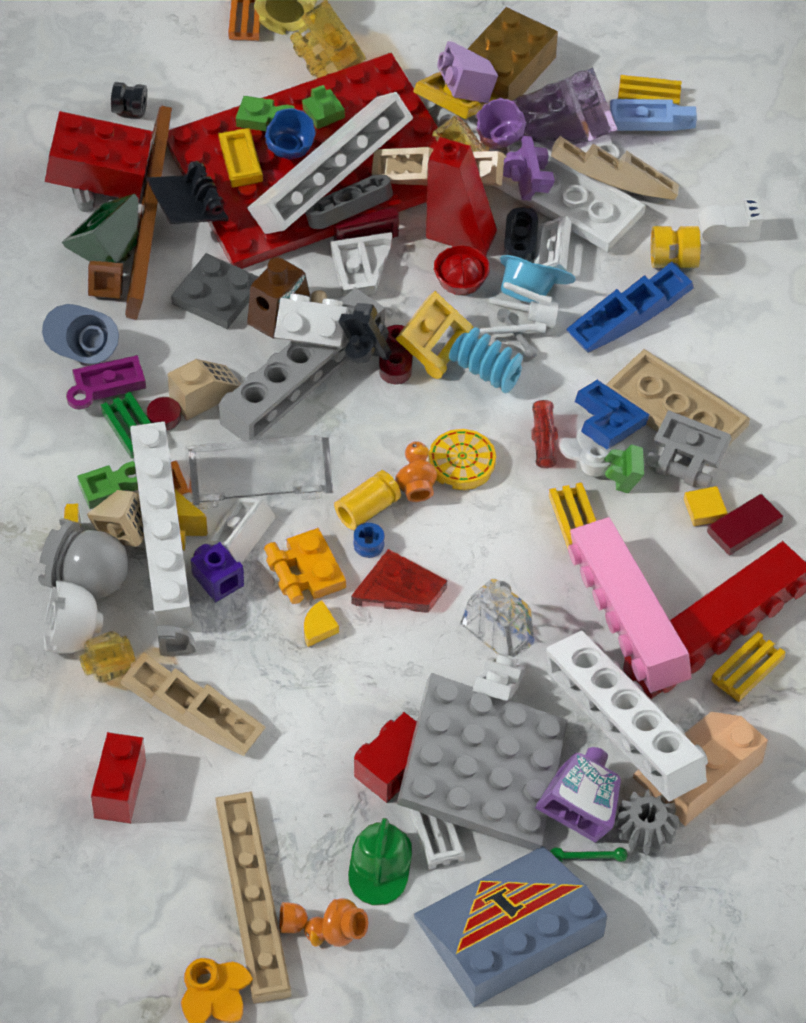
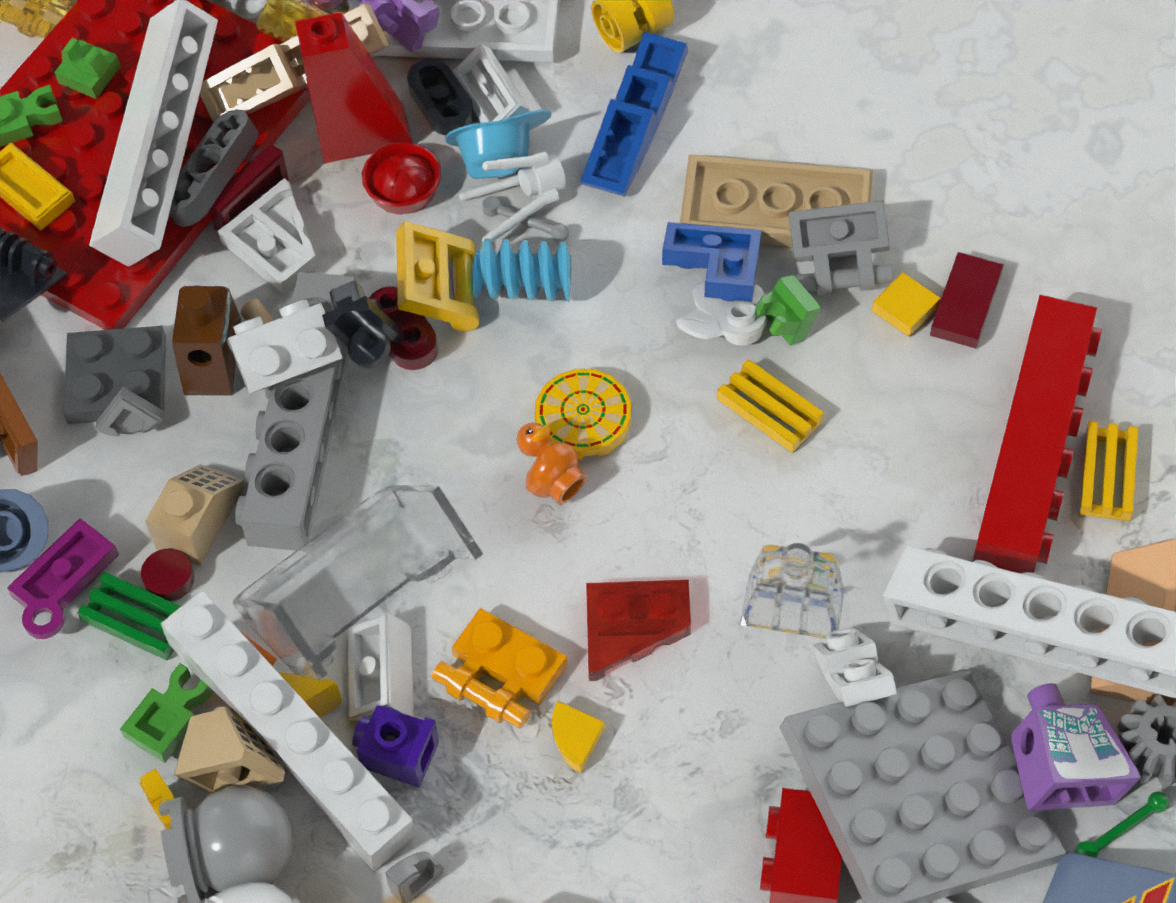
camera: 30 degrees left, 5 degrees up
(206, 316) = (129, 414): none -> light grey tile
(290, 133) = (74, 121): blue hair -> none
(367, 500) = (514, 535): yellow piece -> none
(368, 530) = (558, 573): blue bush -> none
(544, 434) = (658, 325): clear red pin -> none
(629, 605) = (943, 480): bright pink brick -> none

